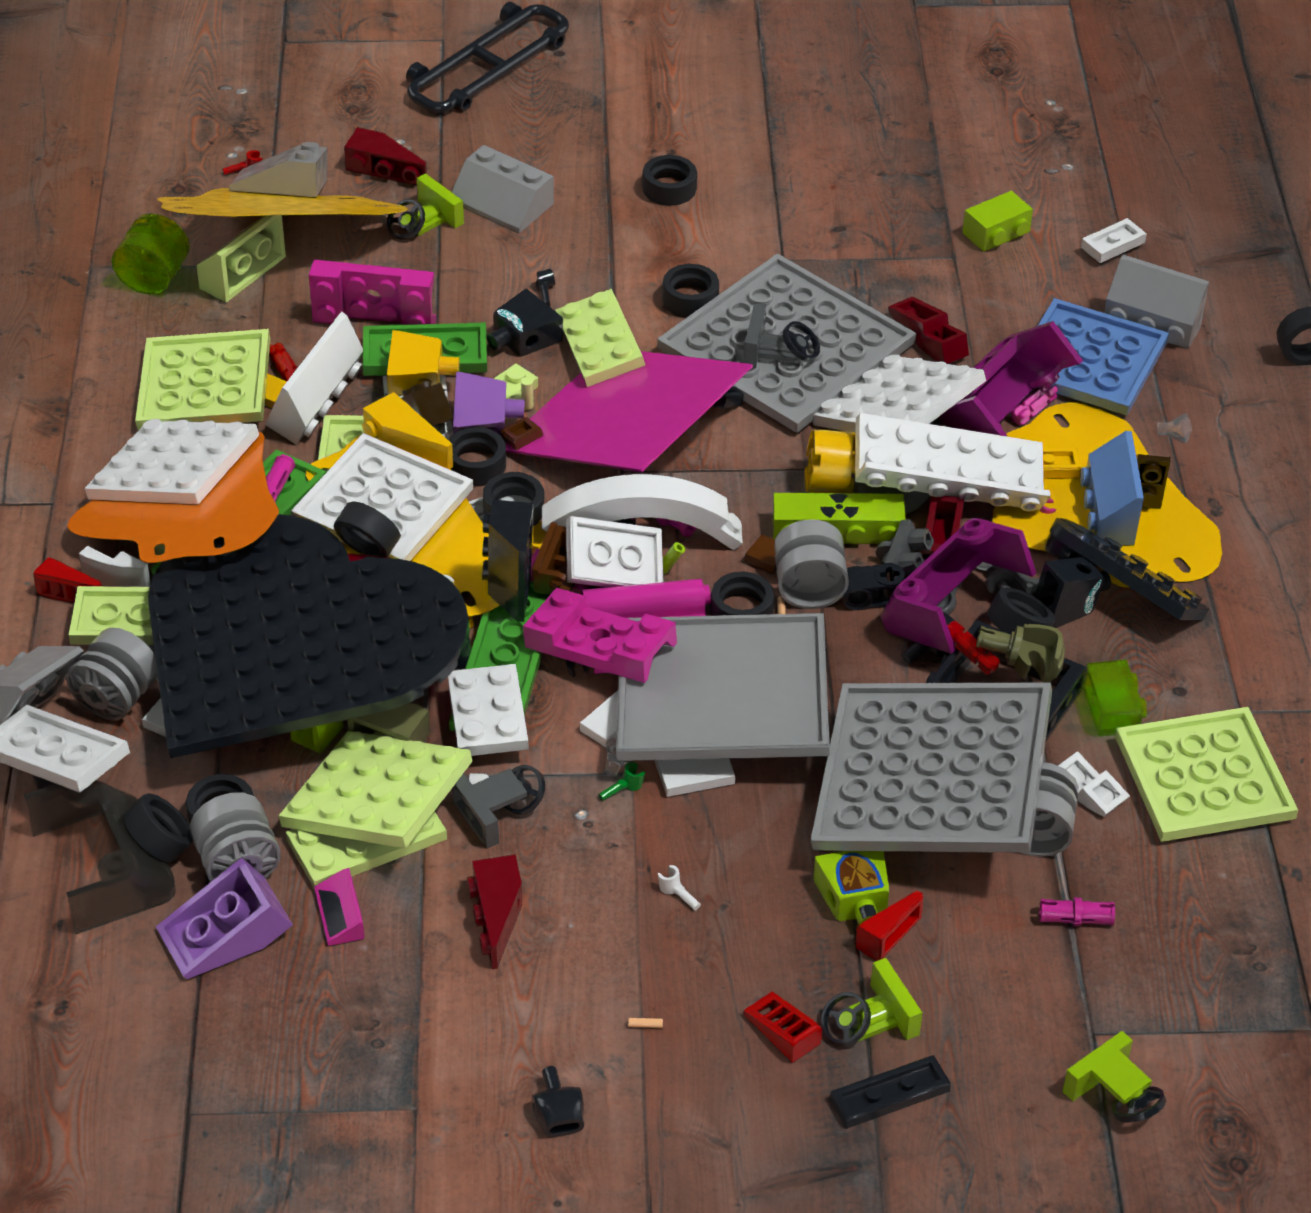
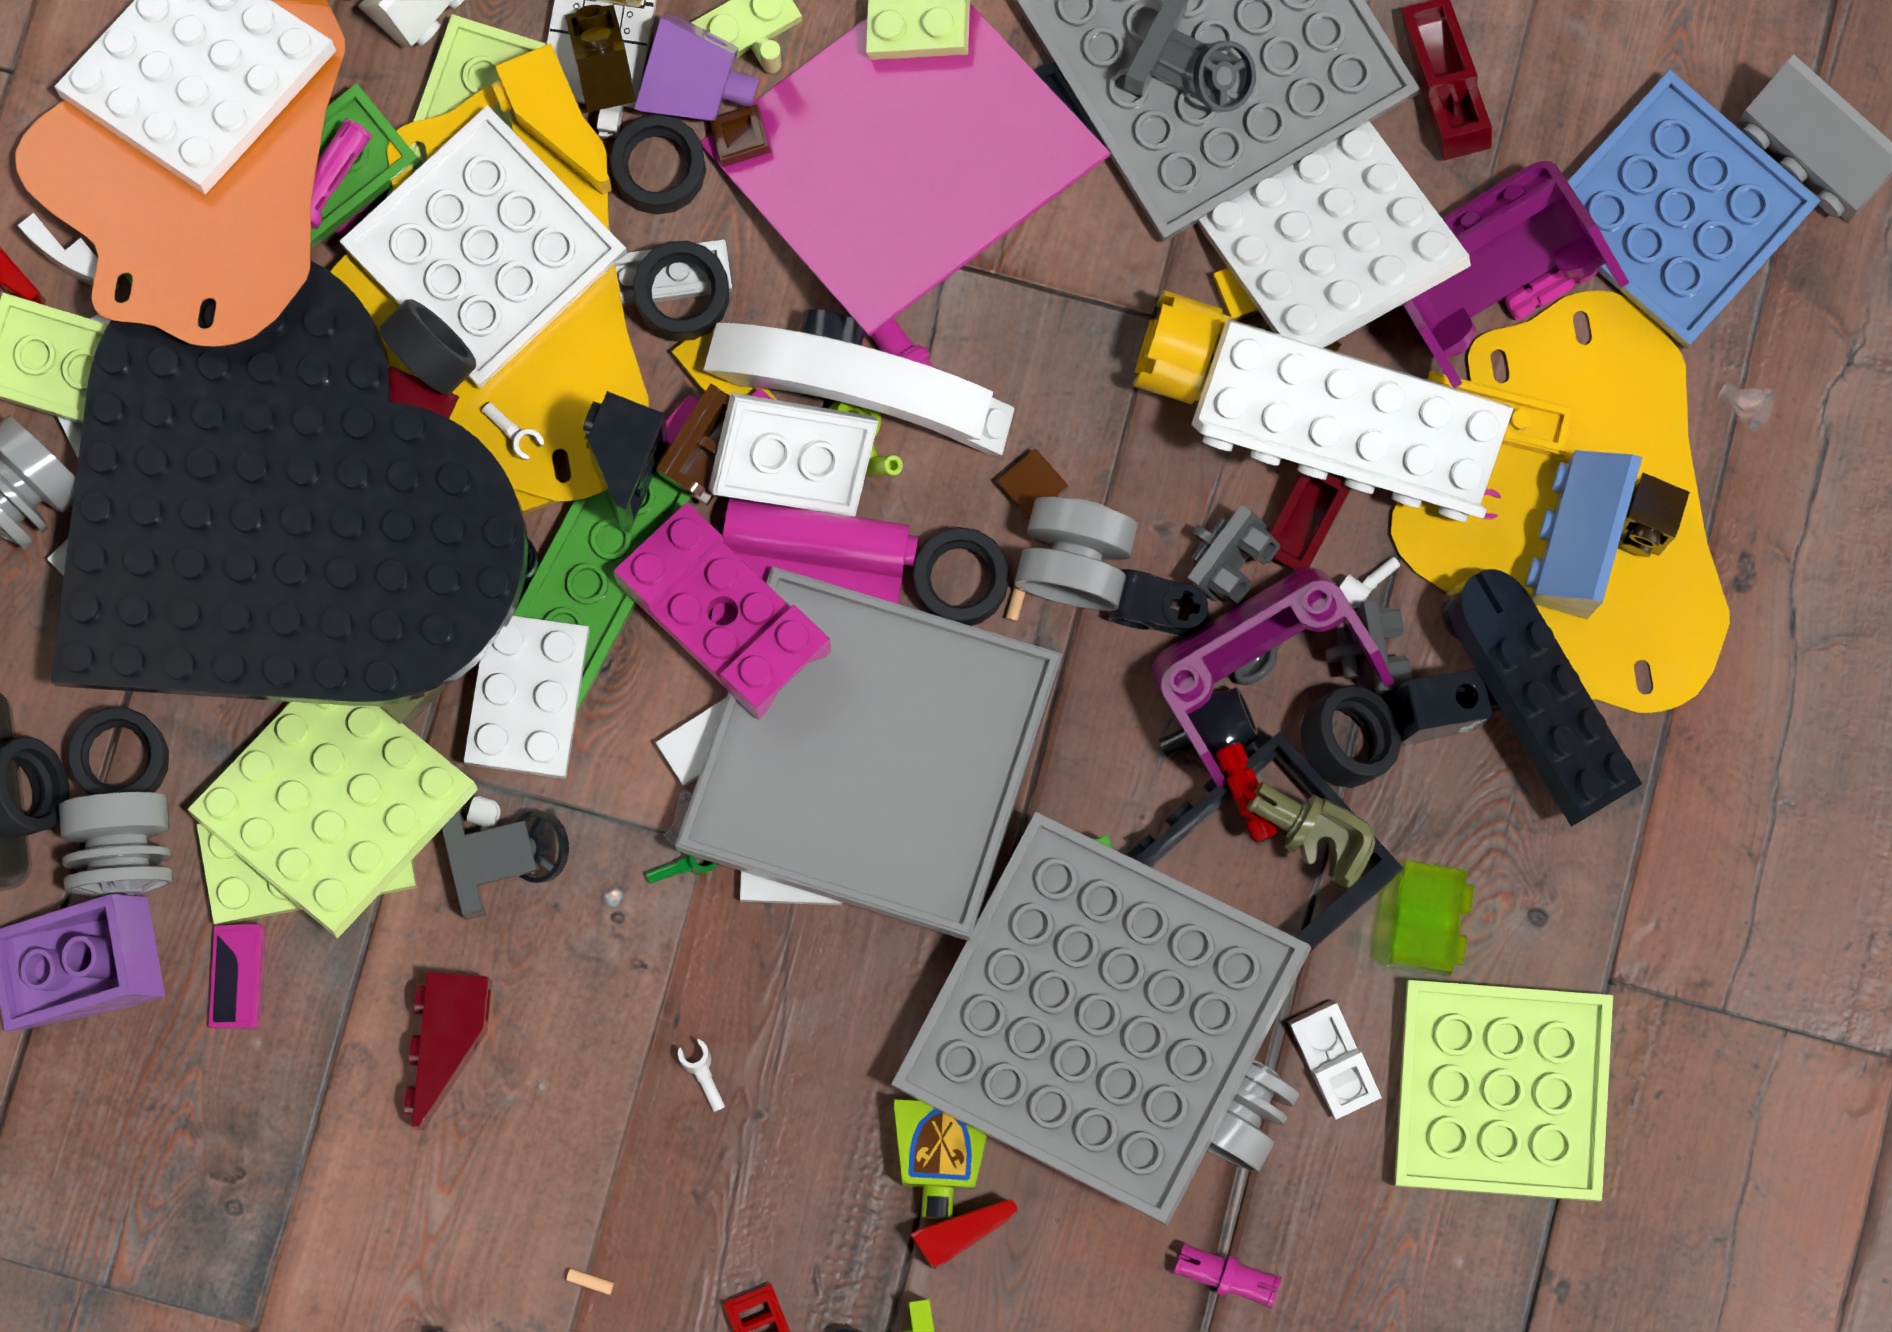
camera: 15 degrees right, 35 degrees up
(858, 516) = (1153, 452): lime brick -> none

